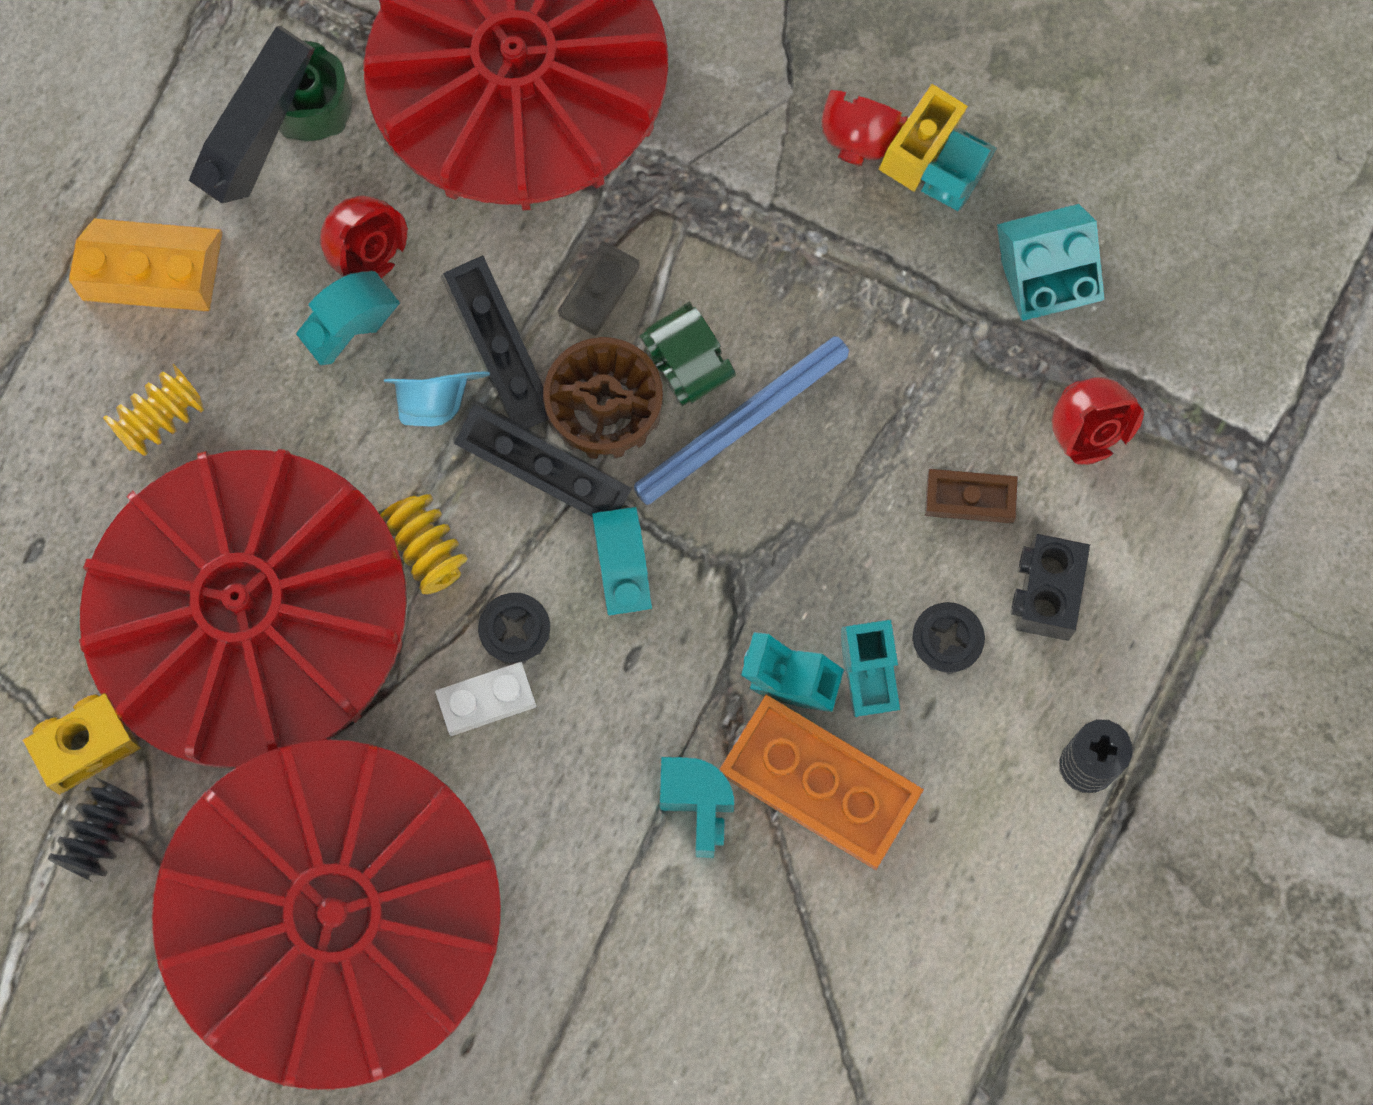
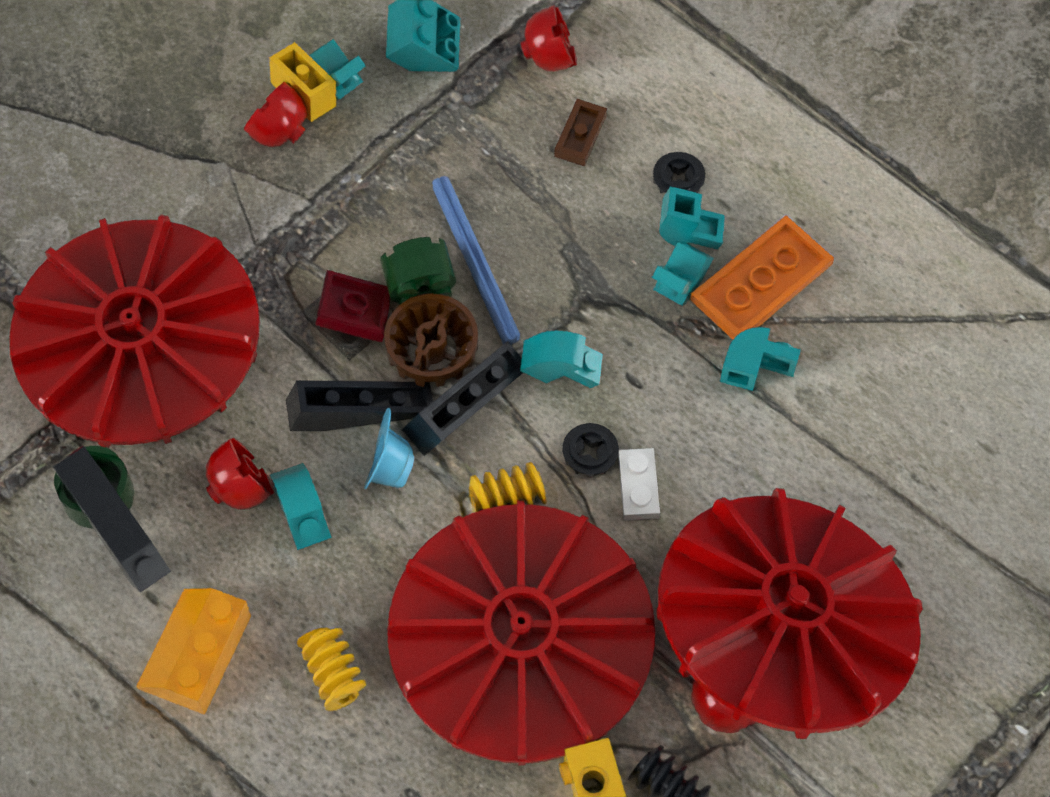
camera: 75 degrees left, 10 degrees down
(620, 292) = (353, 306): none -> dark red tile
(1060, 589) = (663, 97): black brick -> none
(1095, 756) = (793, 104): black piece -> none

